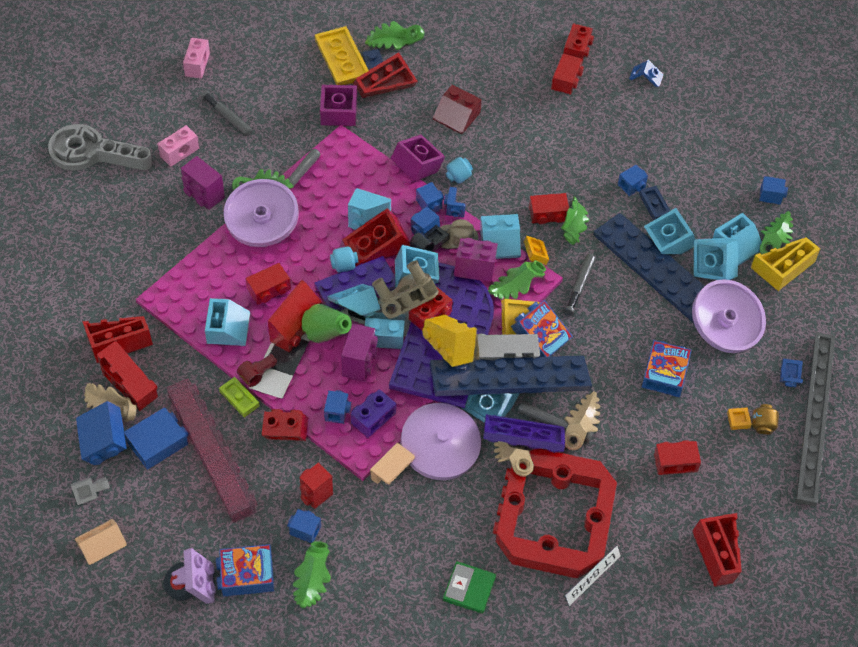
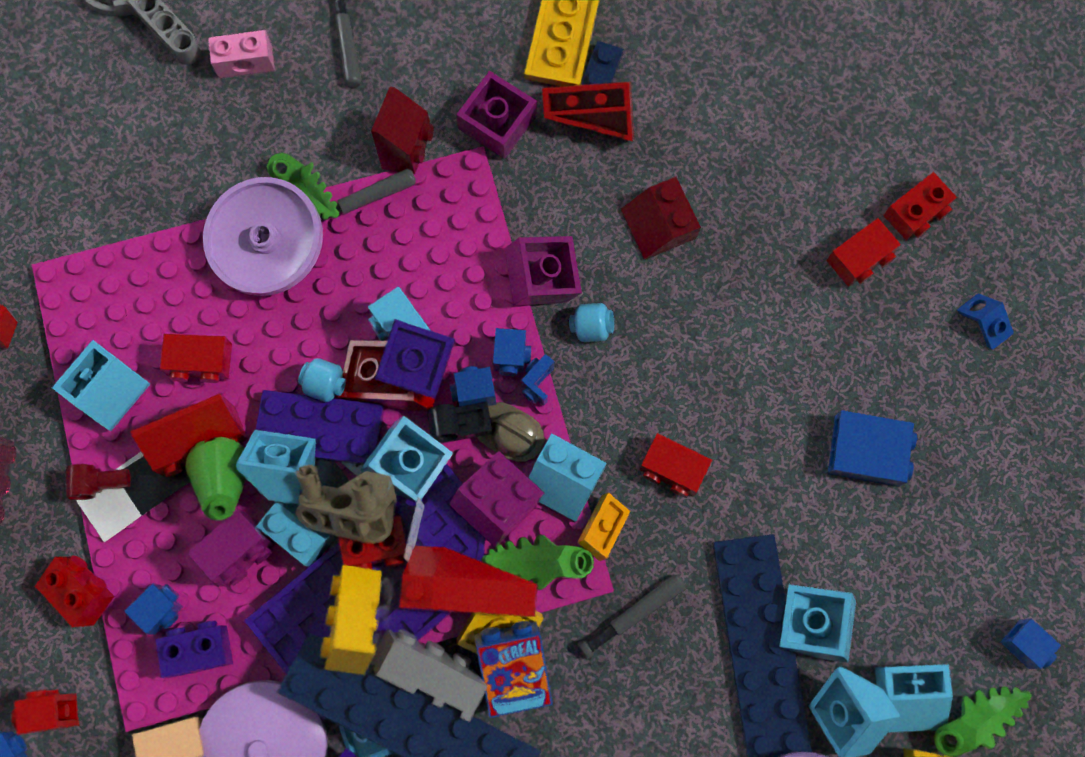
camera: 35 degrees right, 20 degrees up
(202, 183) = (225, 136): magenta brick -> none
(239, 397) = (56, 510): lime plate -> none
(297, 134) = (401, 132): none -> dark red slope
(390, 213) = (415, 358): none -> dark purple tile
(394, 35) = (659, 40): bright green plant -> none
(447, 287) = (414, 529): none -> white sticker
(486, 304) = (456, 583): none -> red wedge
(575, 222) = (696, 511): bright green plant -> none
(633, 180) = (832, 493): blue brick -> none
(637, 150) = (872, 448): none -> blue brick
(654, 202) = (837, 551): dark blue plate -> none

